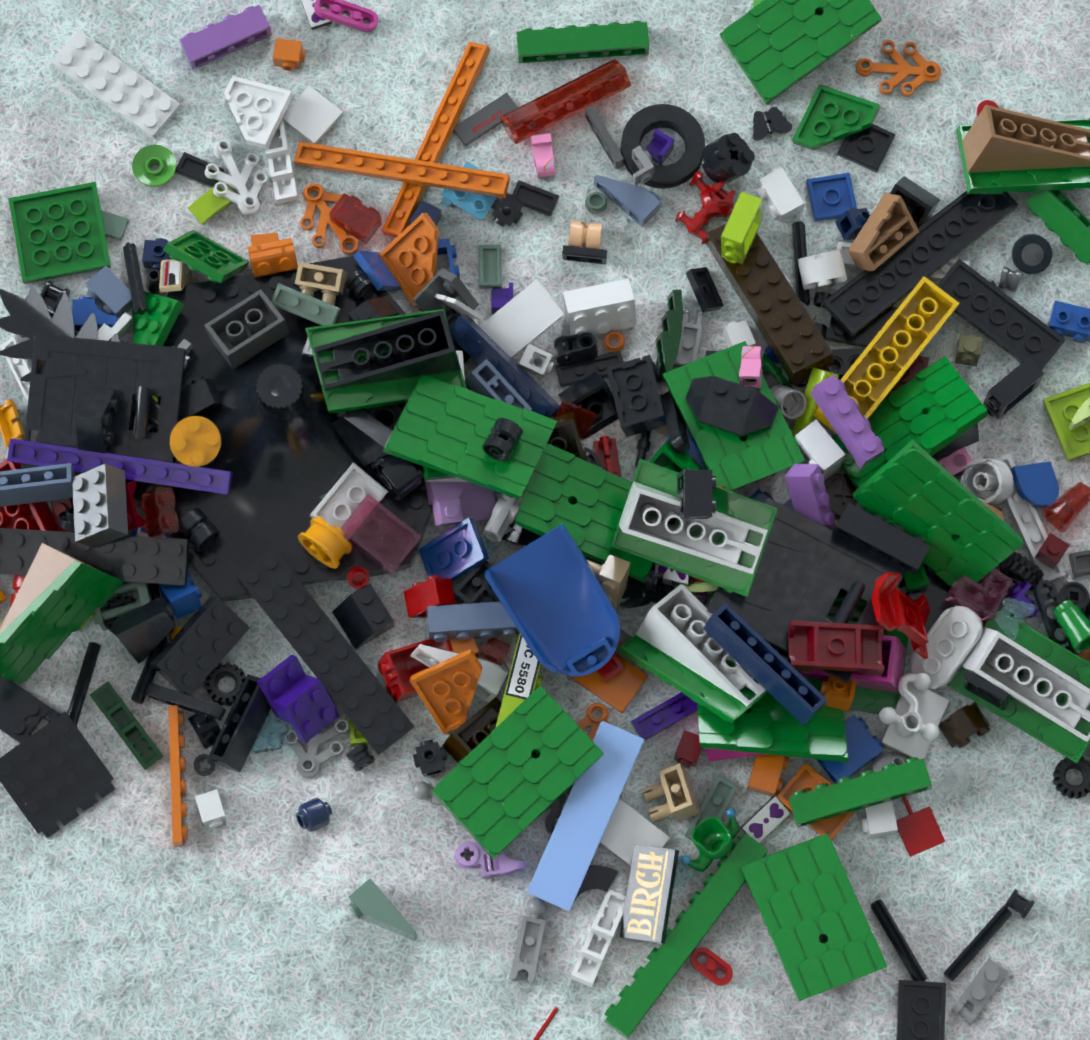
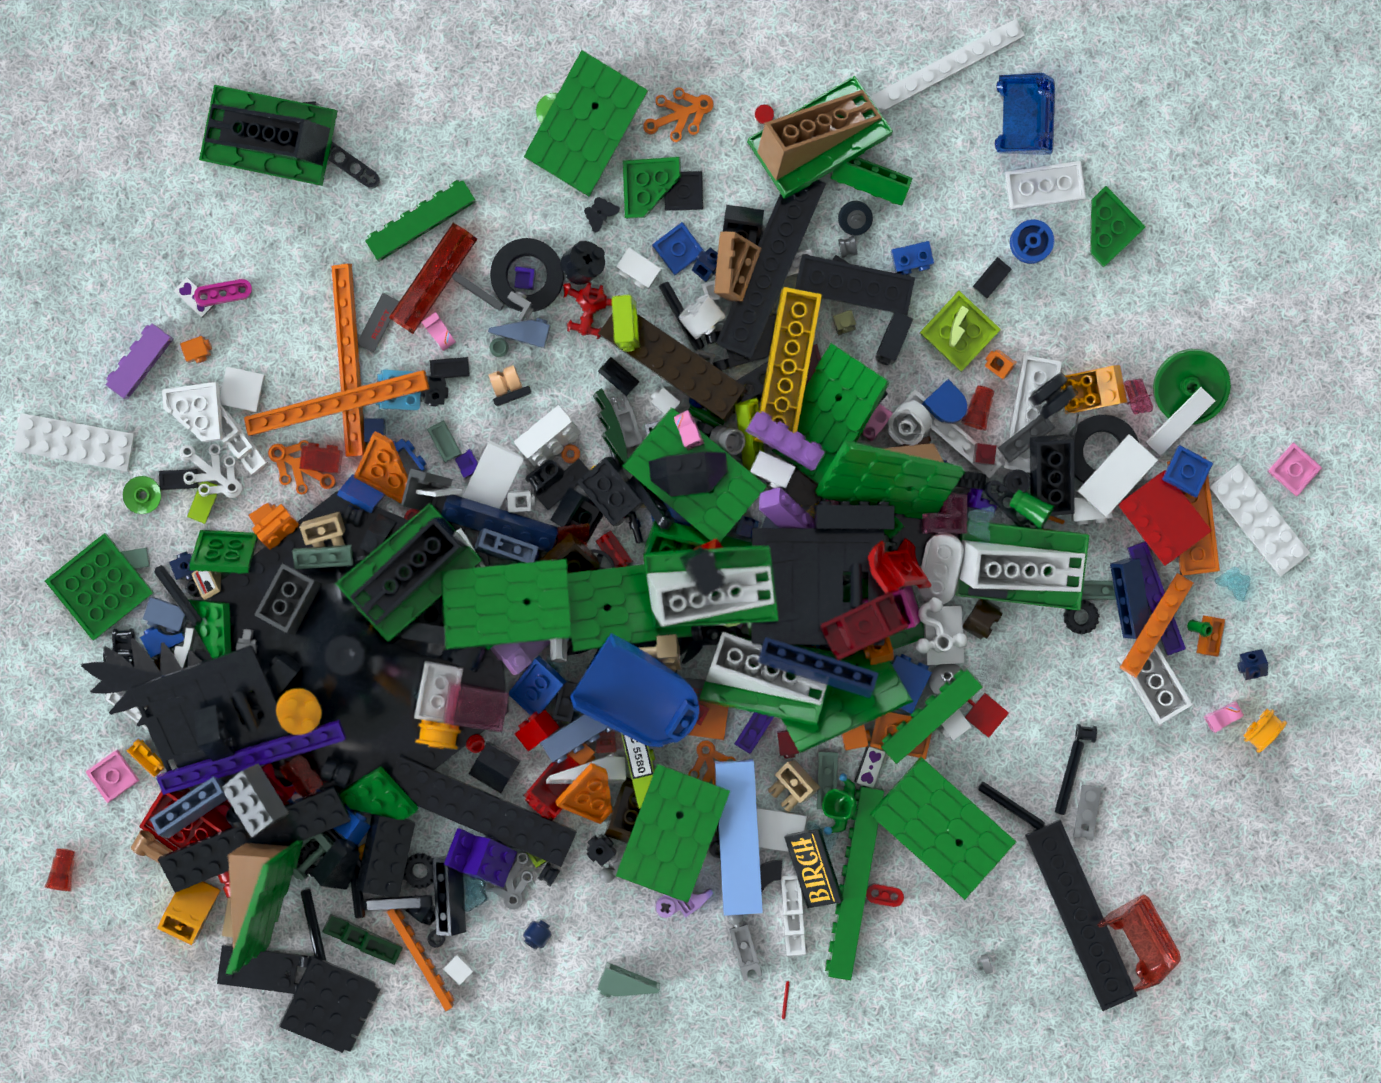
camera: 25 degrees left, 15 degrees up
(228, 575) = (378, 795): none -> green plate
(503, 438) = (533, 592): black wheel -> none

